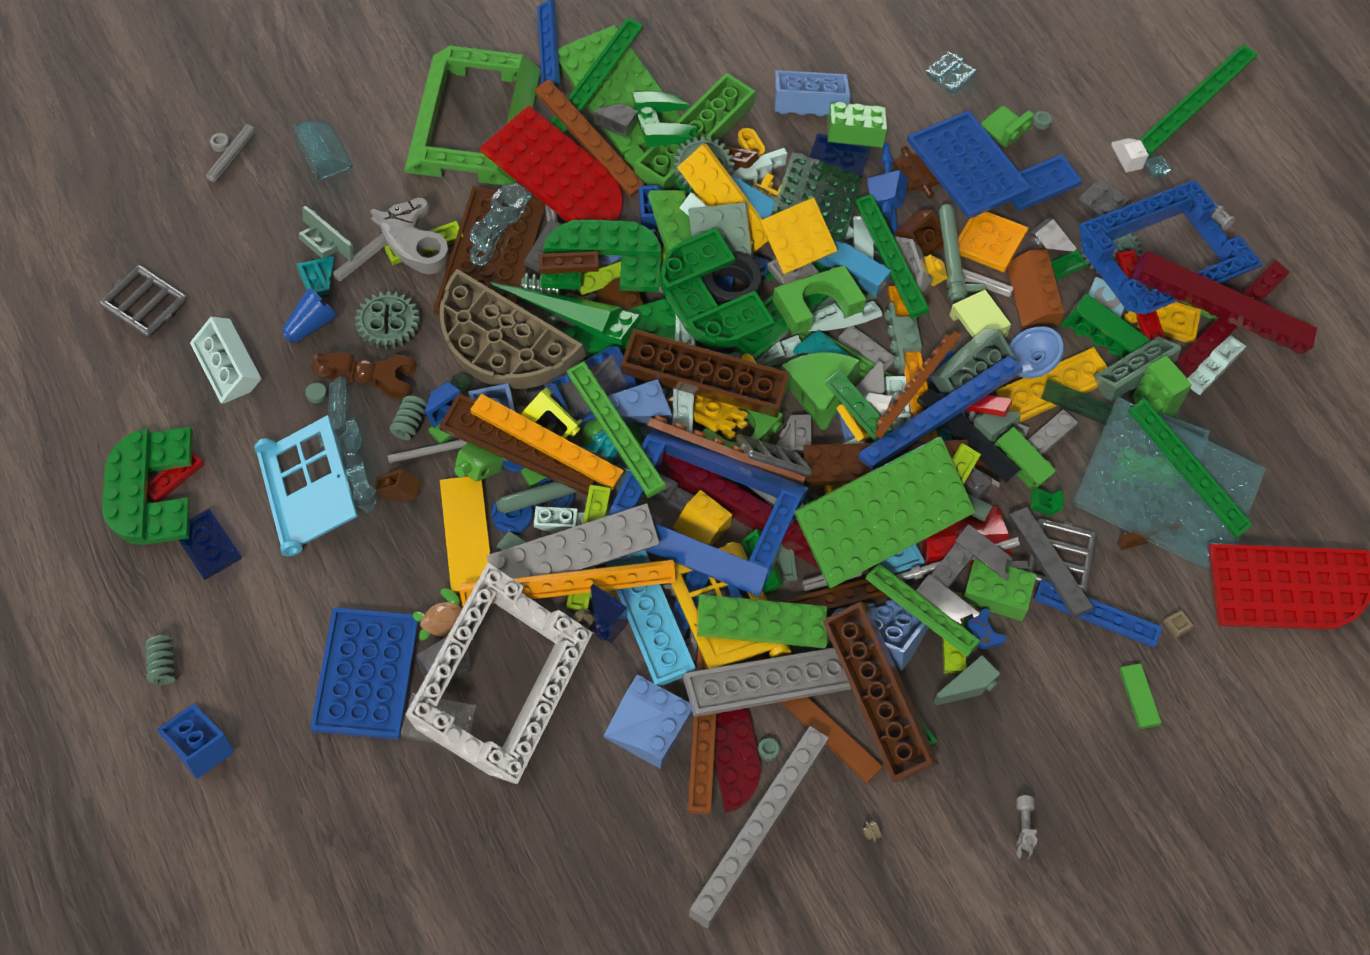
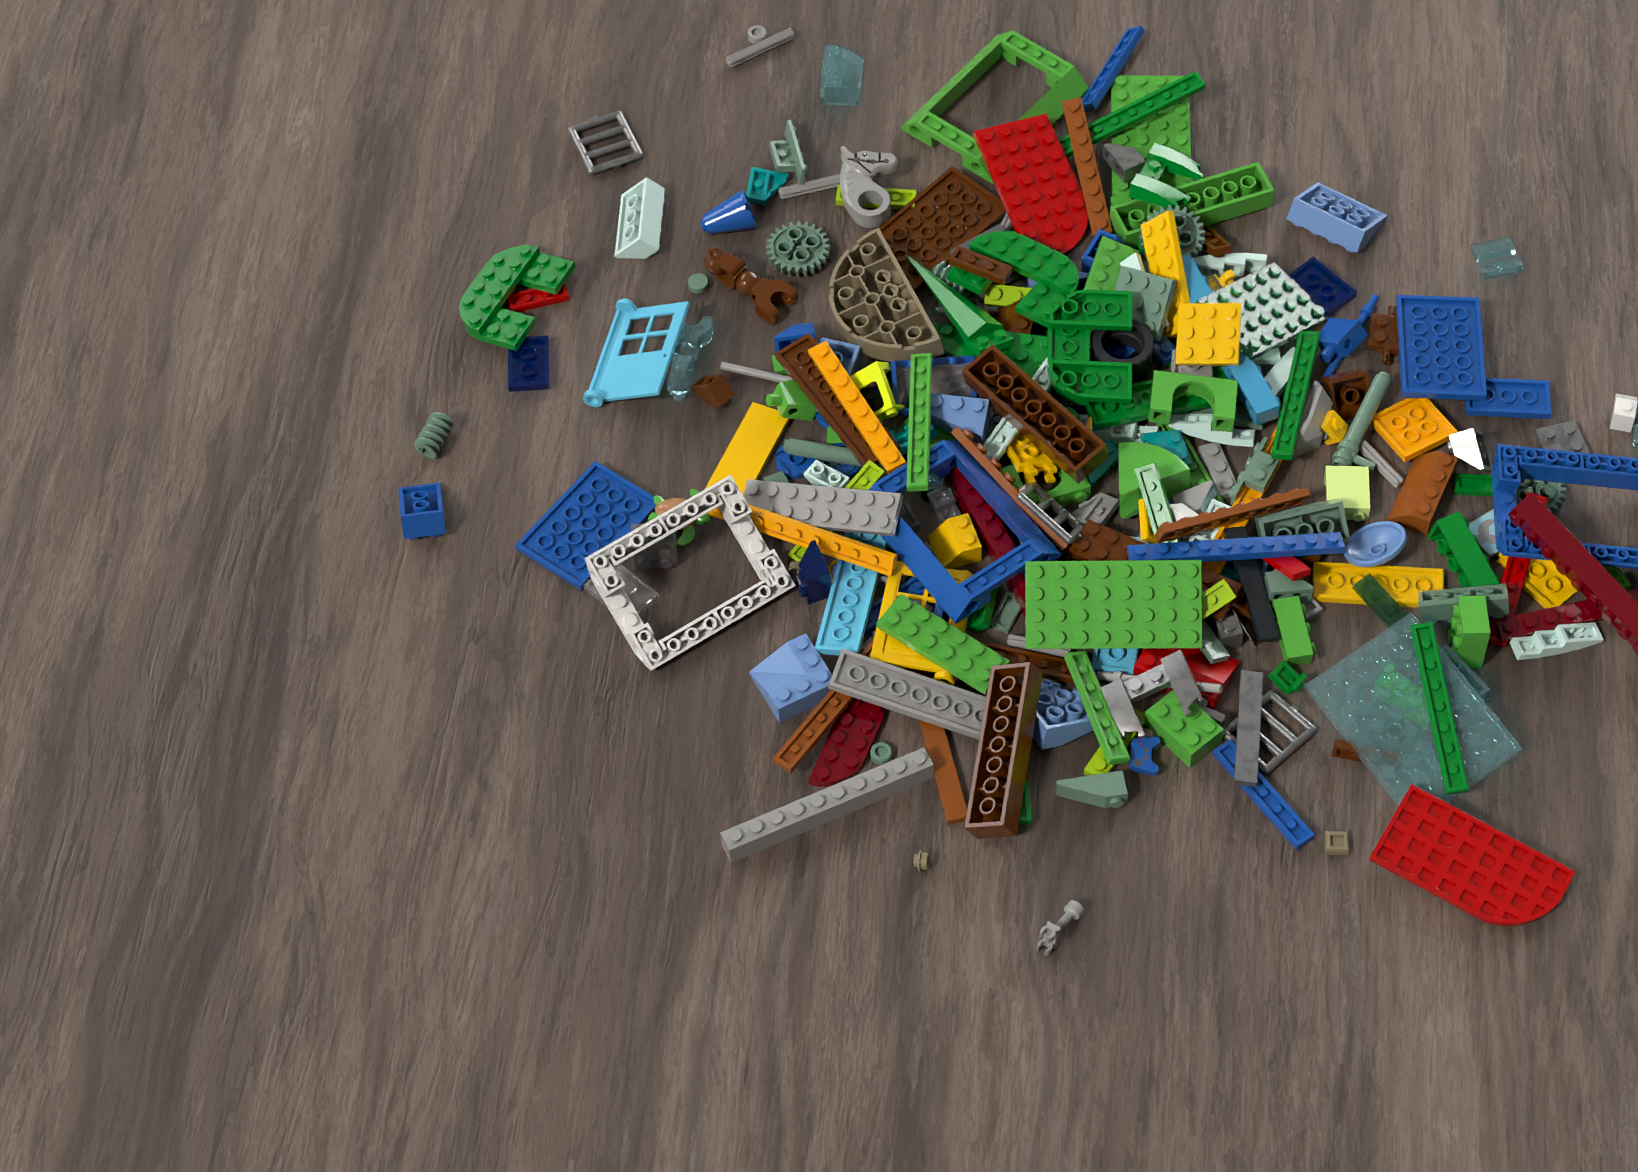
camera: 40 degrees right, 5 degrees down
(337, 404) = (707, 301): clear light blue tile -> none
(408, 417) = (758, 336): sand green piece -> none
(461, 381) = (827, 330): clear green plate -> none
(488, 231) = (934, 208): clear light blue piece -> none
(753, 142) = (1242, 237): yellow plate -> none
(856, 124) = (1355, 263): bright green brick -> none
(1006, 126) = (1514, 330): bright green bracket -> none
(1042, 120) = (1558, 341): sand green tile -> none
(1053, 432) = (1340, 625): light grey plate -> none
(1140, 696) = (1250, 882): bright green tile -> none

